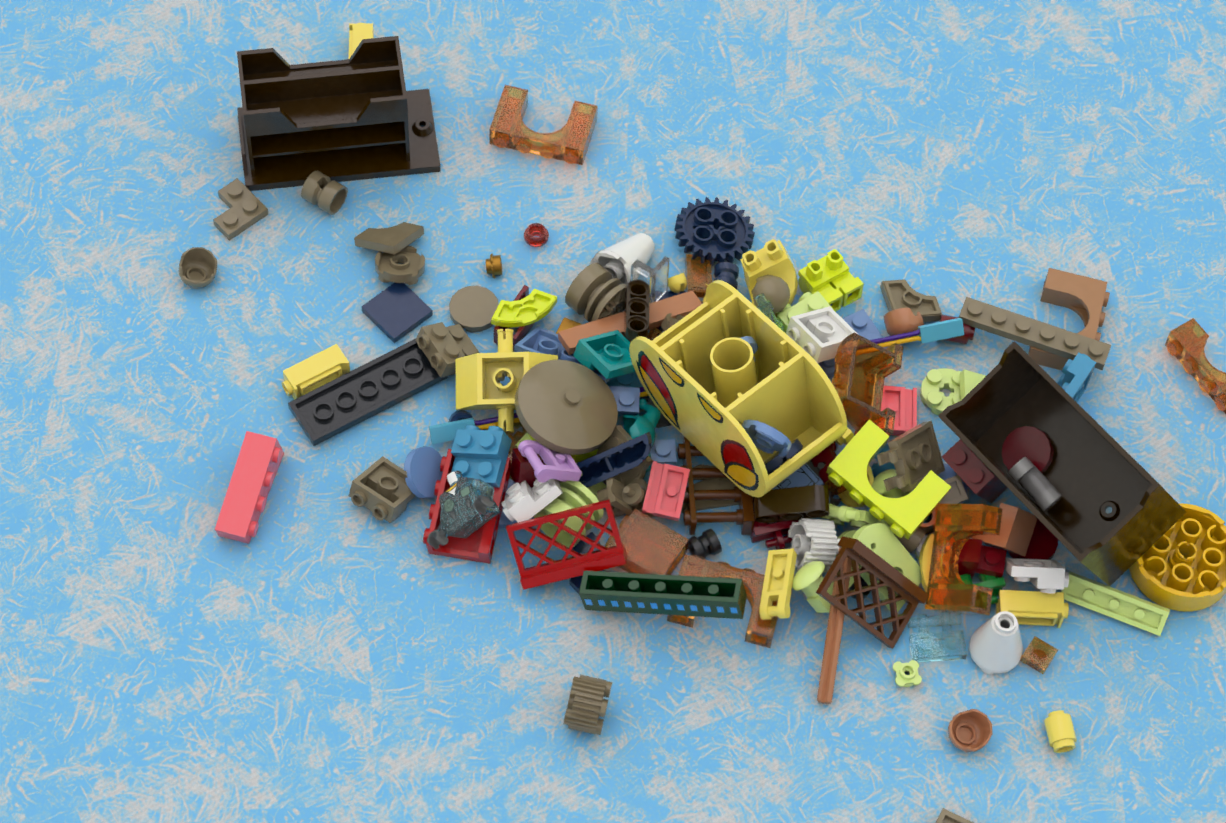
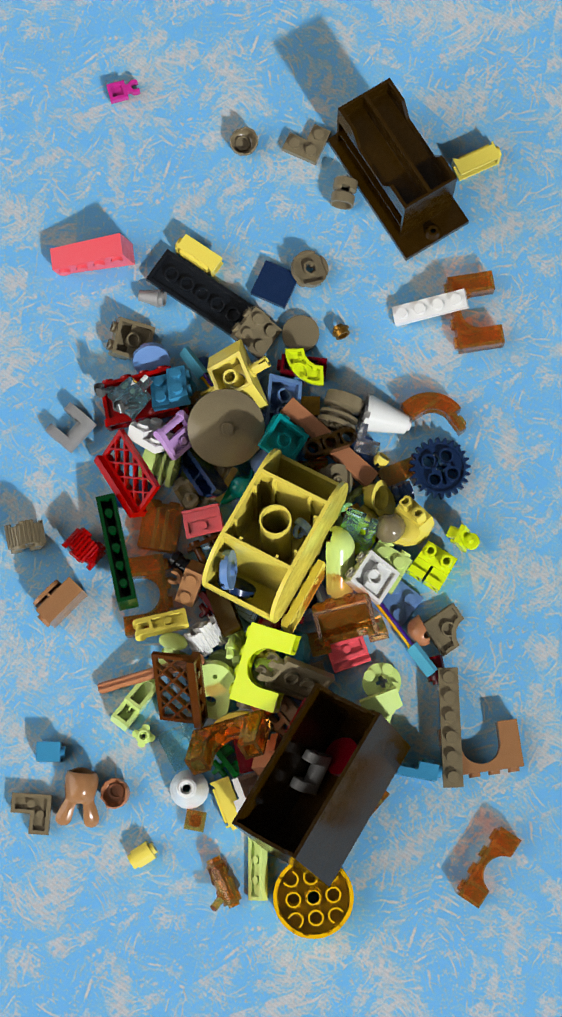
camera: 75 degrees right, 20 degrees up
(47, 378) = (119, 91): none -> dark pink plate
(342, 443) = (153, 297): none -> light grey cone
(390, 239) = (326, 253): dark tan tile -> none
(481, 608) = (77, 433): none -> light grey connector
(516, 161) = (430, 307): none -> white plate
(539, 230) = (382, 343): clear red plate -> none
(636, 639) = (84, 548): none -> red brick
(640, 199) = (435, 403): none -> clear orange arch
(693, 696) = (58, 601): none -> medium nougat brick
(737, 537) = (189, 582): none -> medium nougat brick
(811, 238) = (463, 538): none -> neon yellow hips
(862, 667) = (133, 704): none -> yellowish green slope
(884, 789) = (50, 752): none -> dark azure brick
(949, 768) = (80, 788): none -> medium nougat piece
(1129, 652) = (224, 882): none -> clear orange piece

